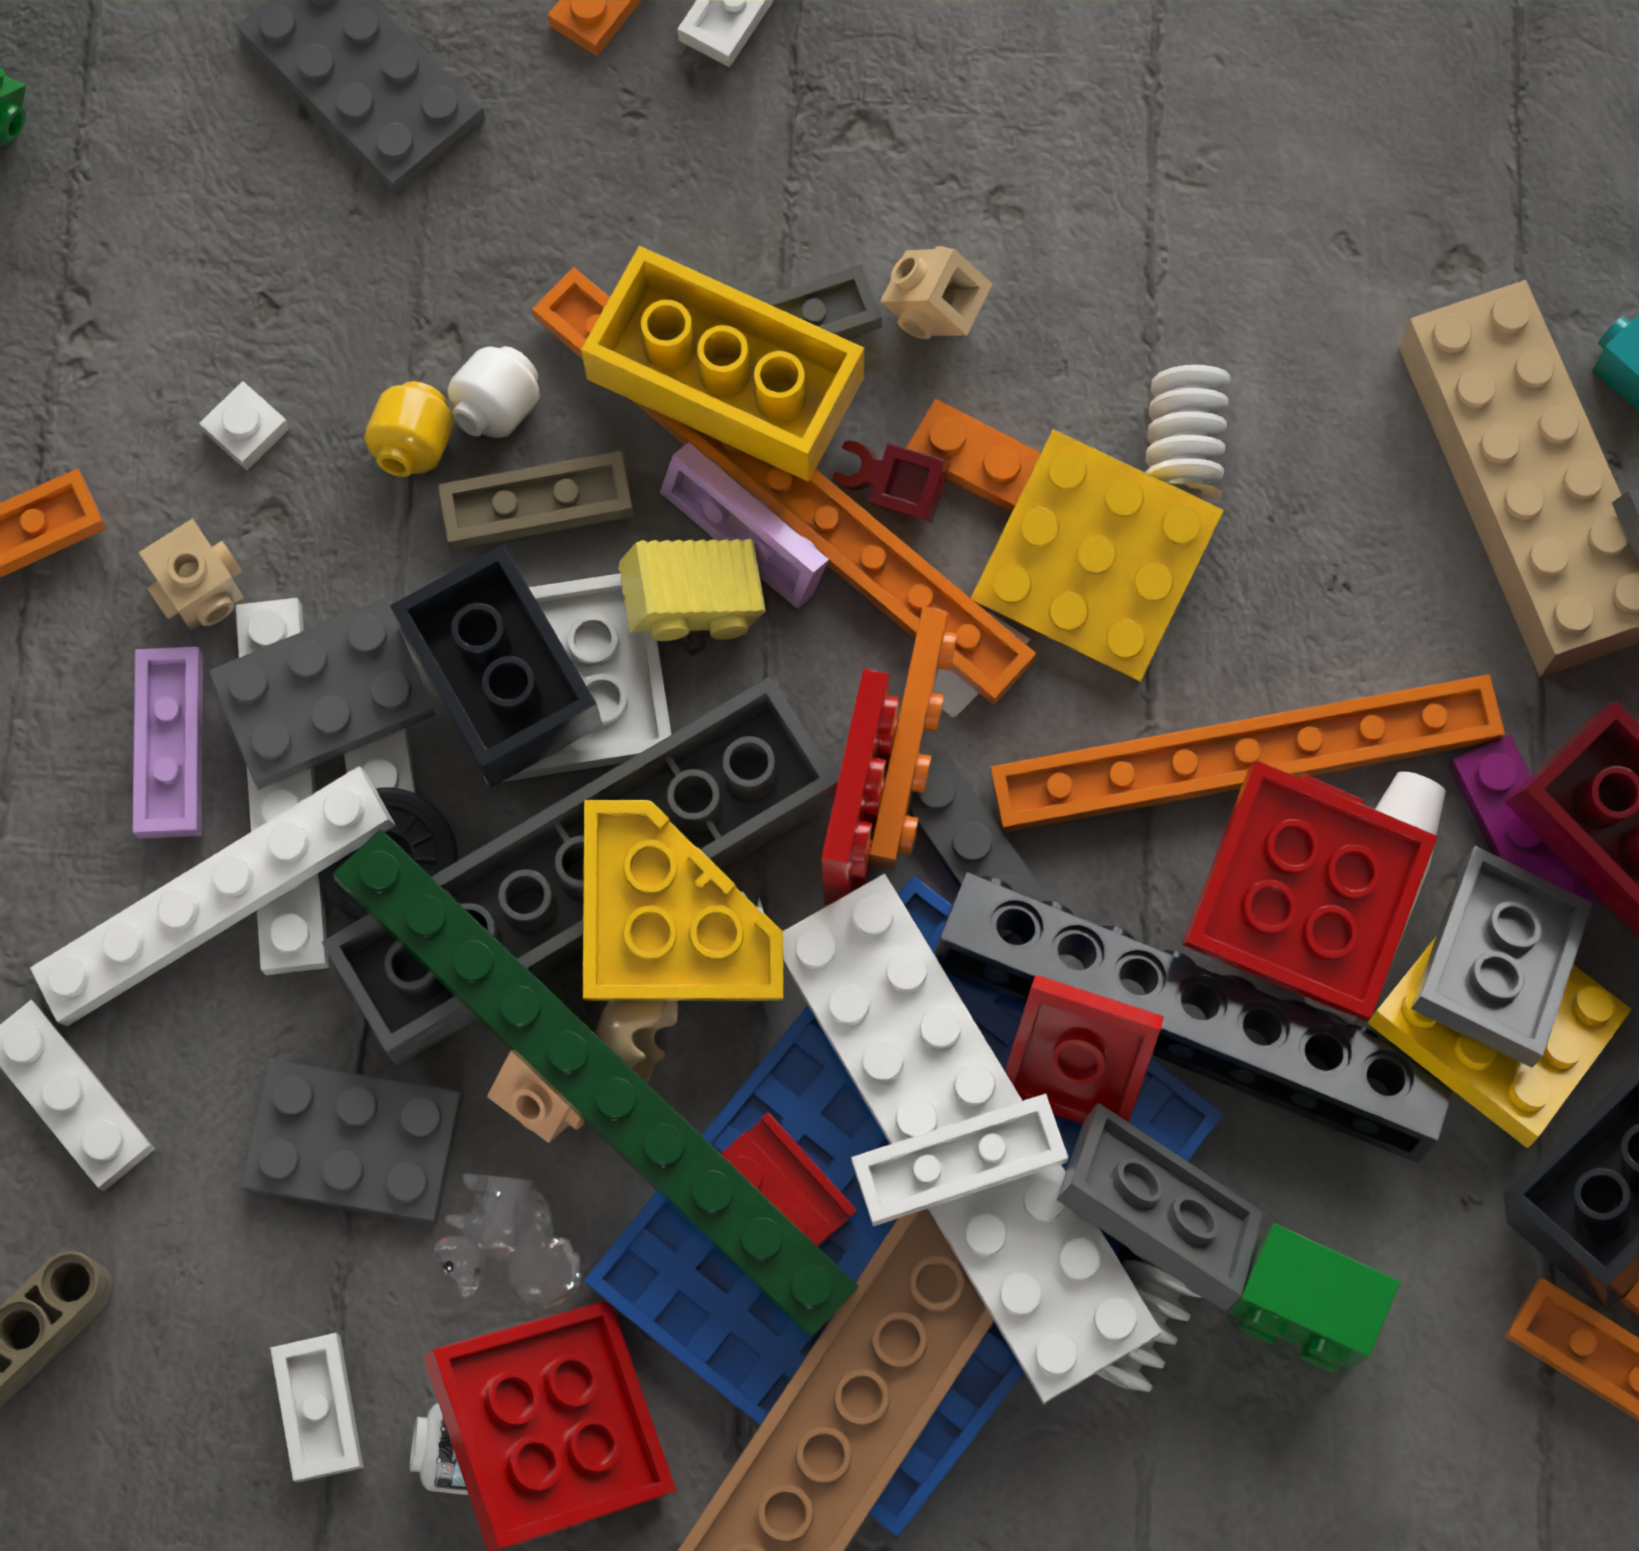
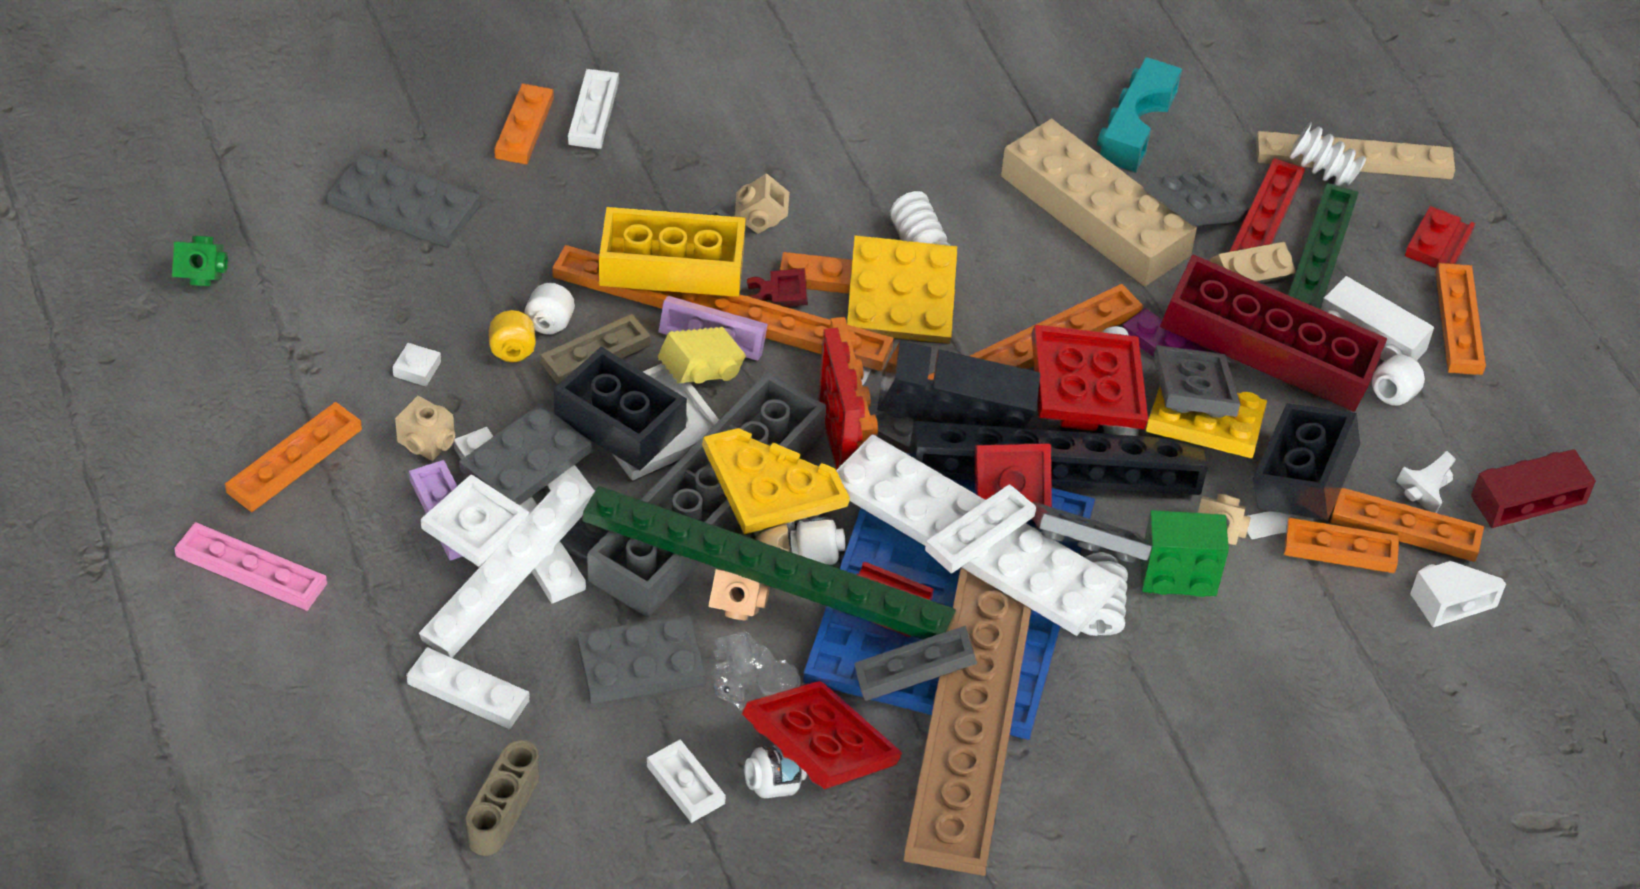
camera: 30 degrees left, 25 degrees down
(184, 797) = (473, 520): none -> white plate
(722, 1033) = (818, 540): none -> white head
(750, 1361) = (915, 663): none -> dark grey plate
(1074, 835) = (962, 389): none -> black piece
(1417, 1242) = (1234, 512): none -> tan brick
(1509, 1258) = (1270, 523): none -> white sticker

